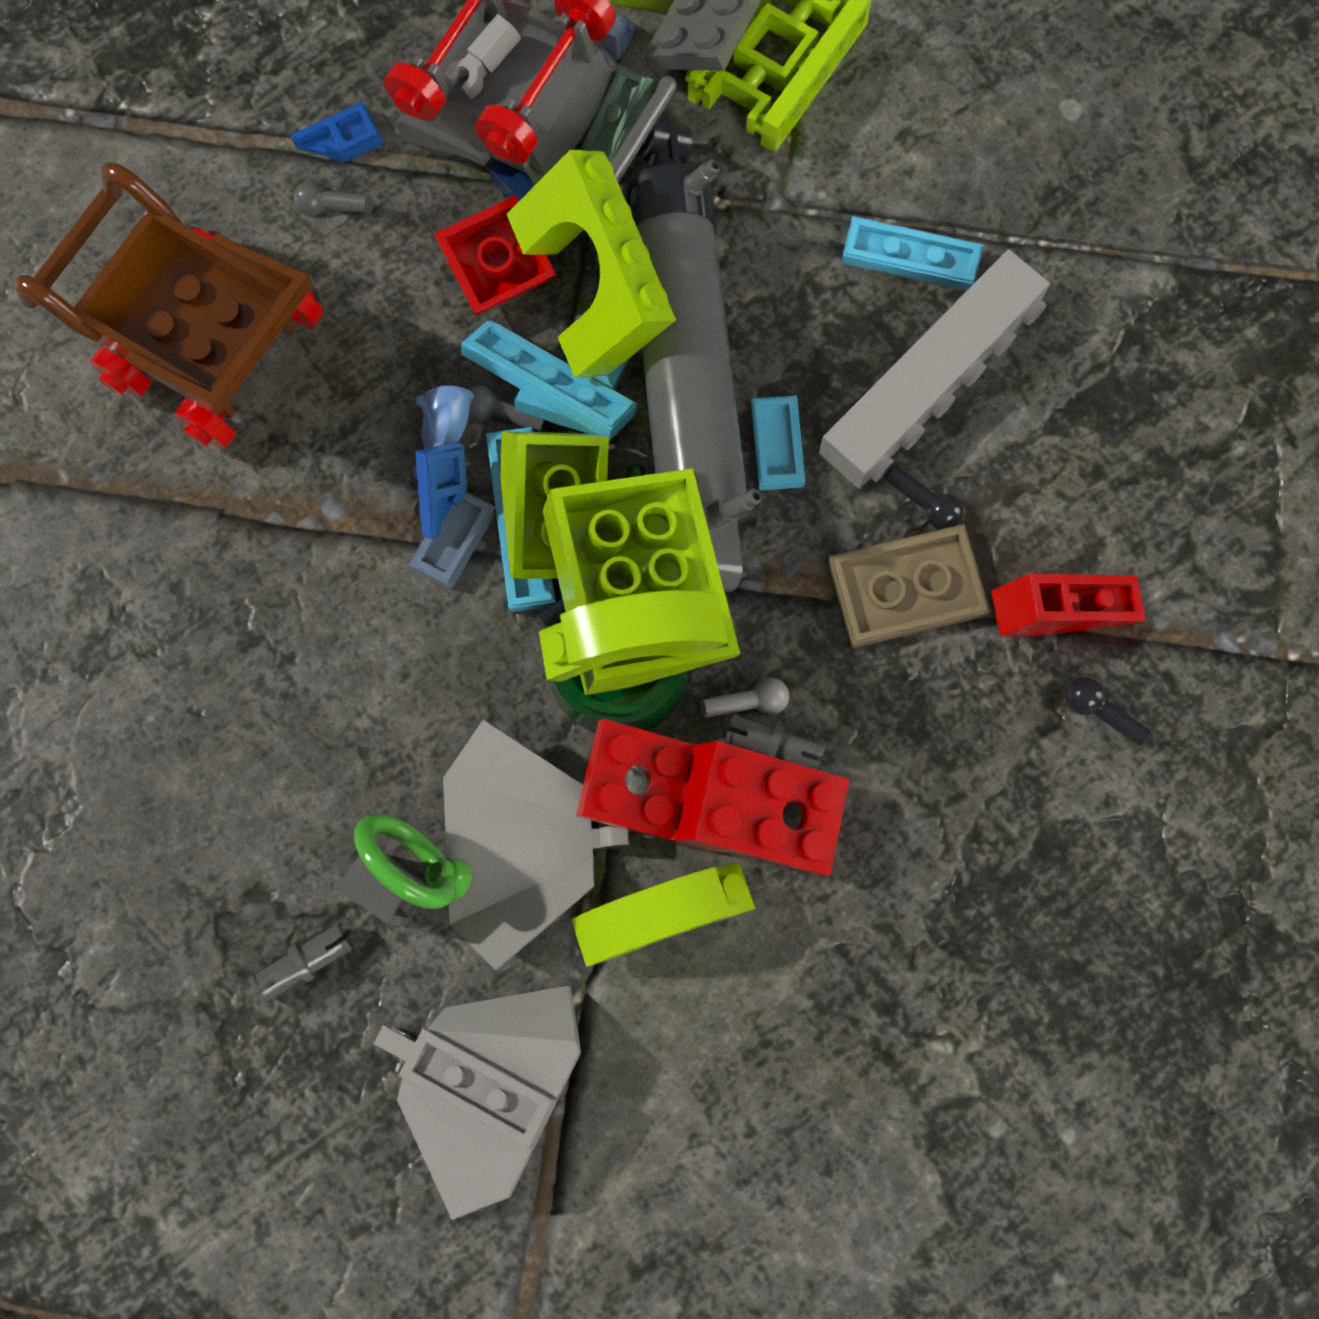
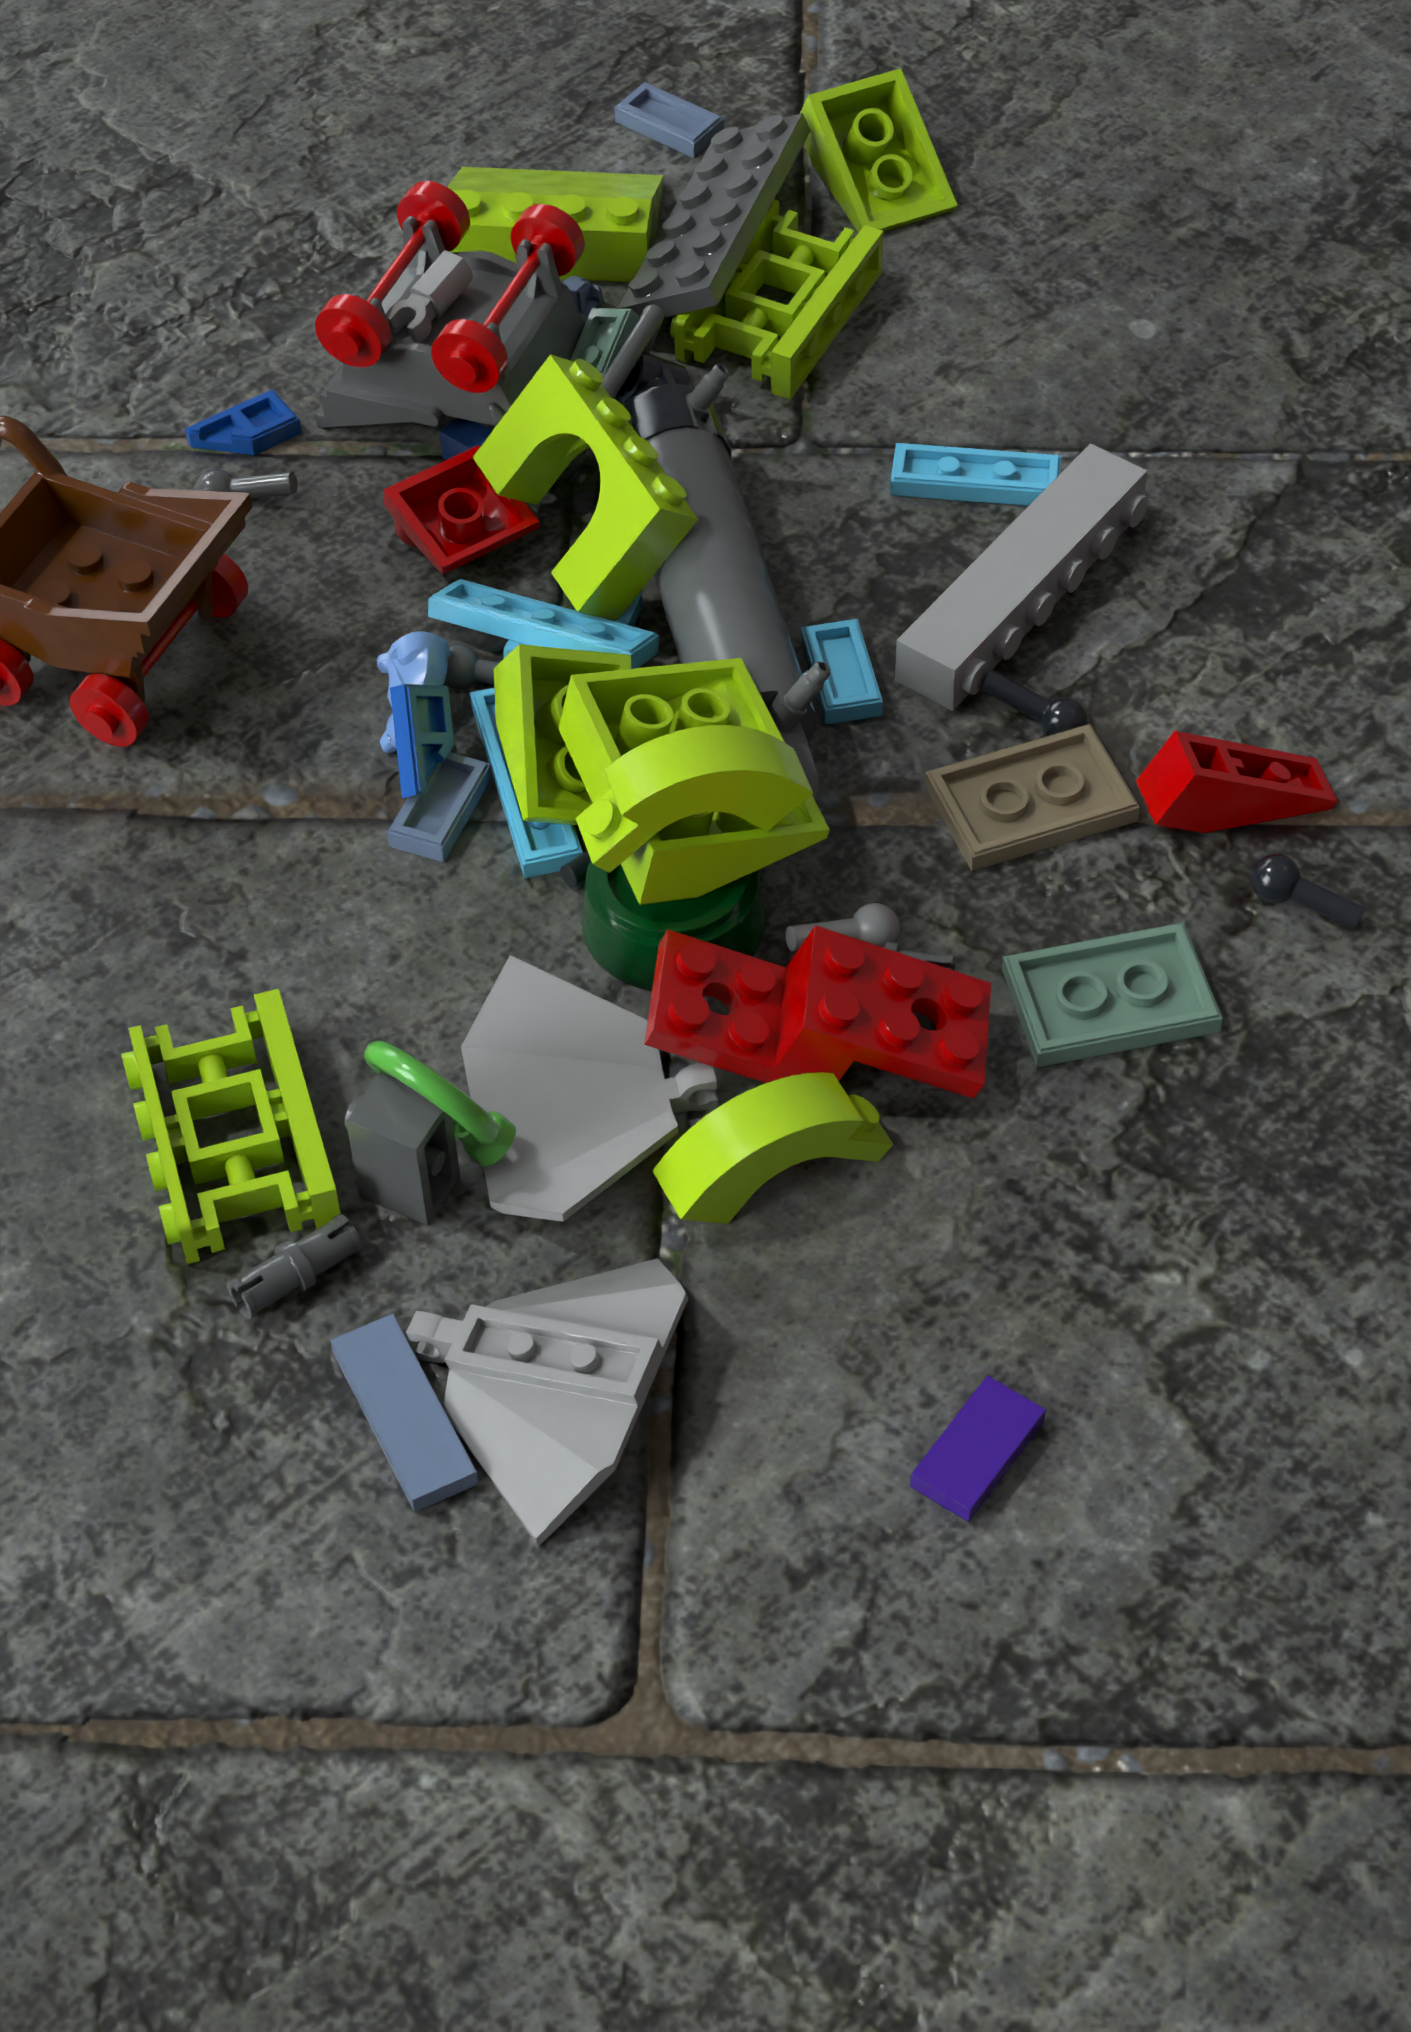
camera: 10 degrees left, 25 degrees down
(306, 825) = (280, 1111): none -> lime fence
(368, 1098) = (404, 1413): none -> sand blue tile
(779, 1187) = (977, 1448): none -> dark purple tile
(940, 785) = (1111, 994): none -> sand green tile

